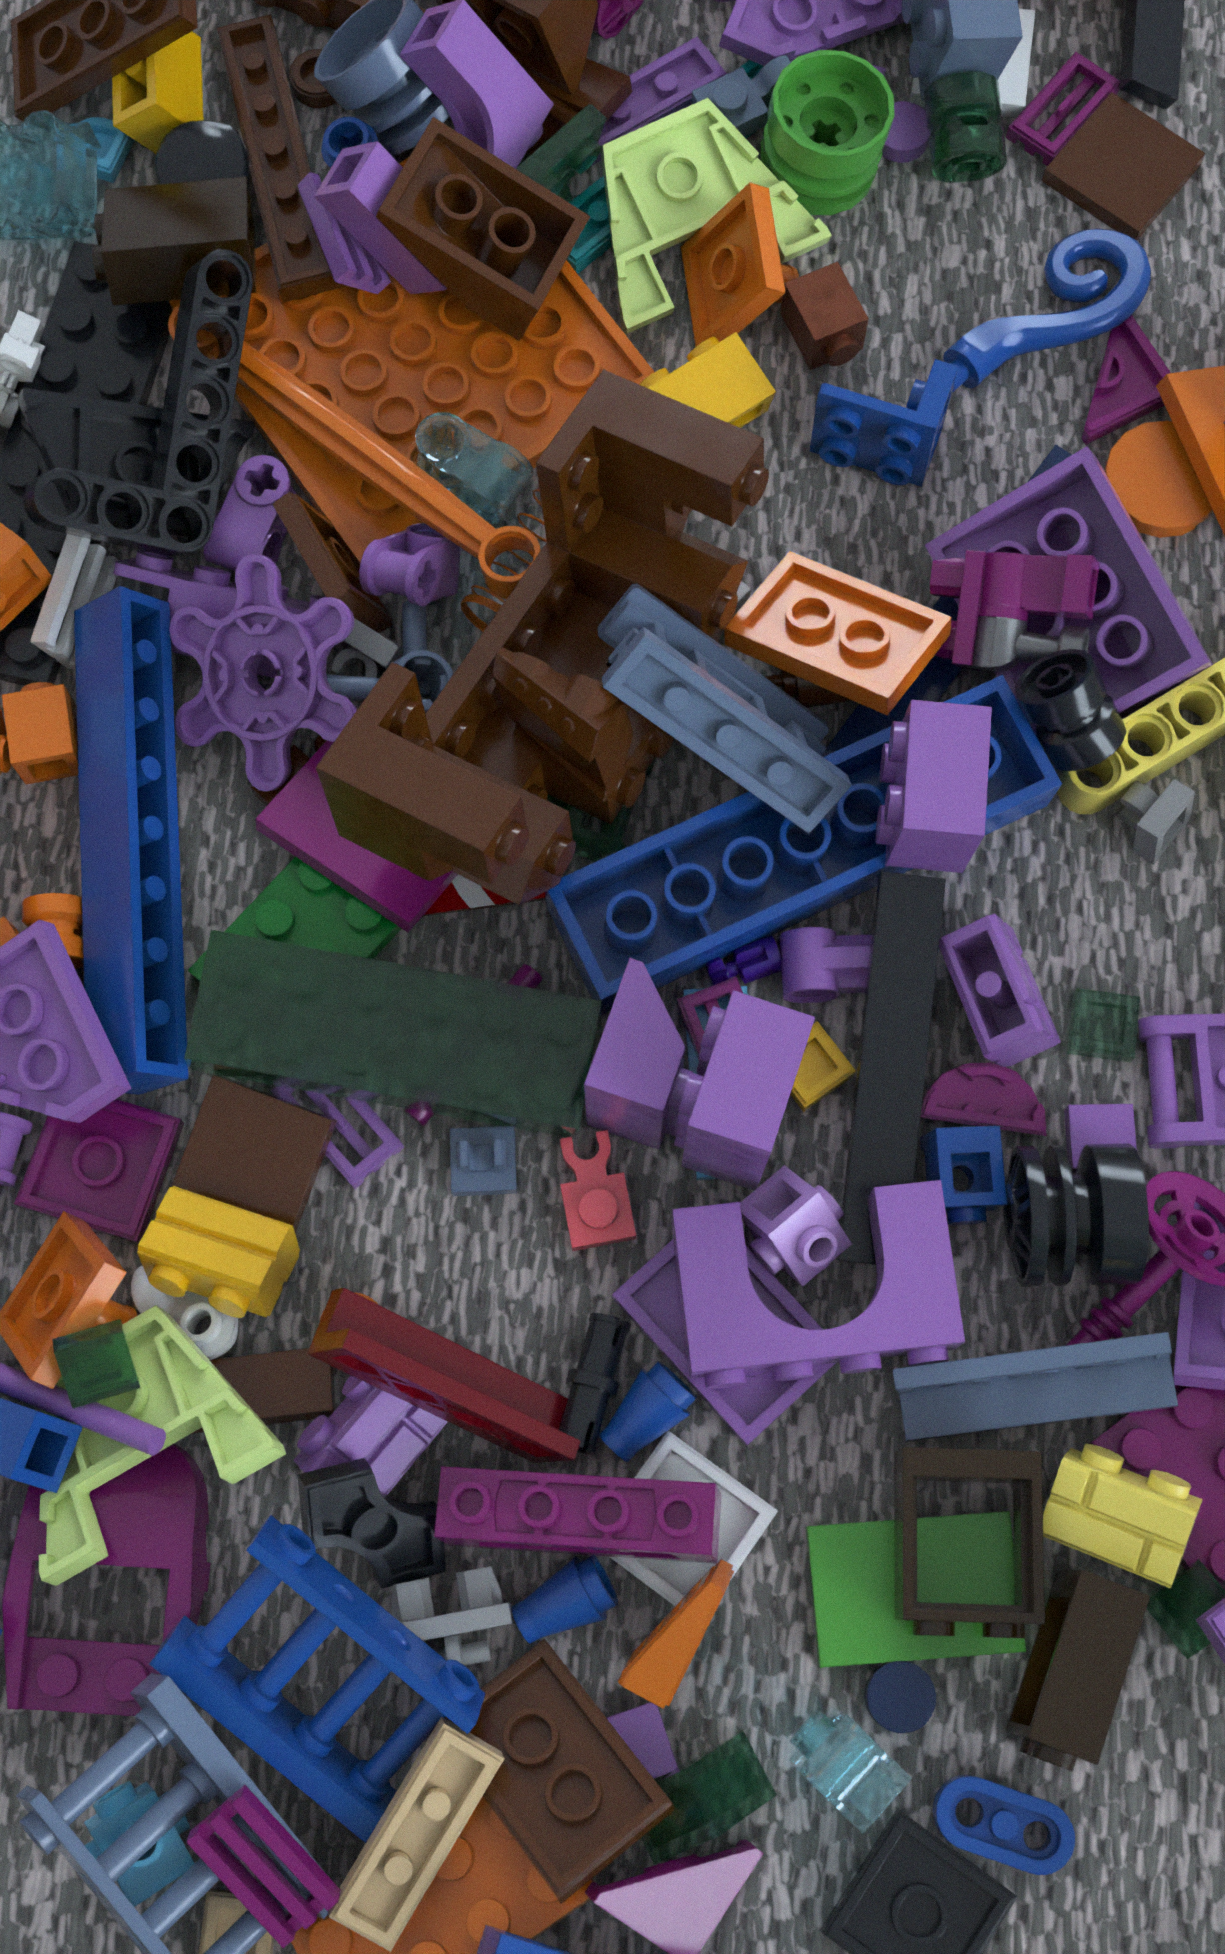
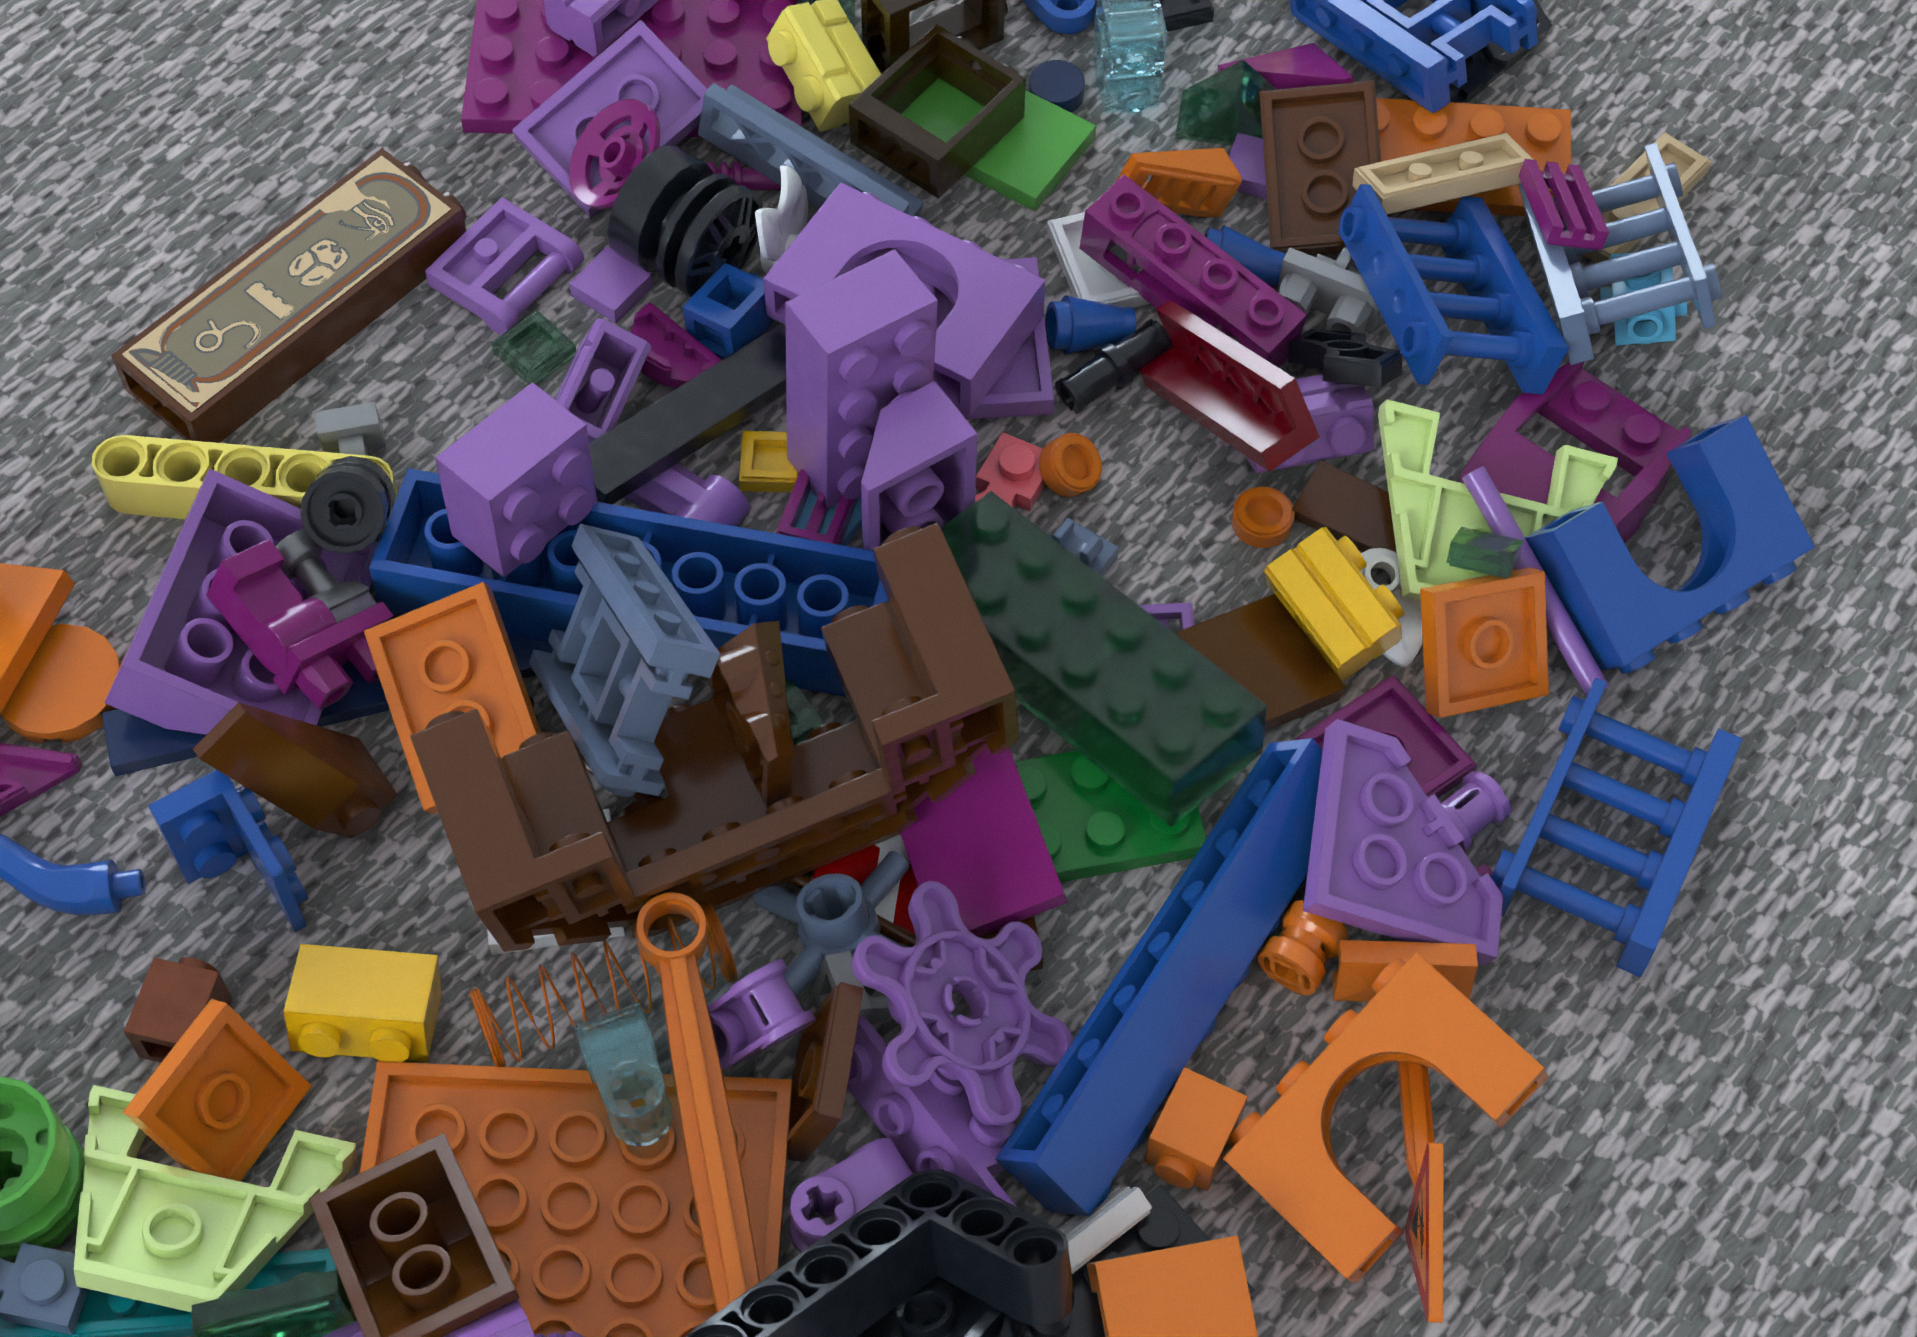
camera: 145 degrees left, 15 degrees down
(551, 1244) = (1070, 465): none -> orange tile
(886, 502) = (300, 768): none -> reddish brown slope
(986, 1288) = (782, 225): none -> white plate

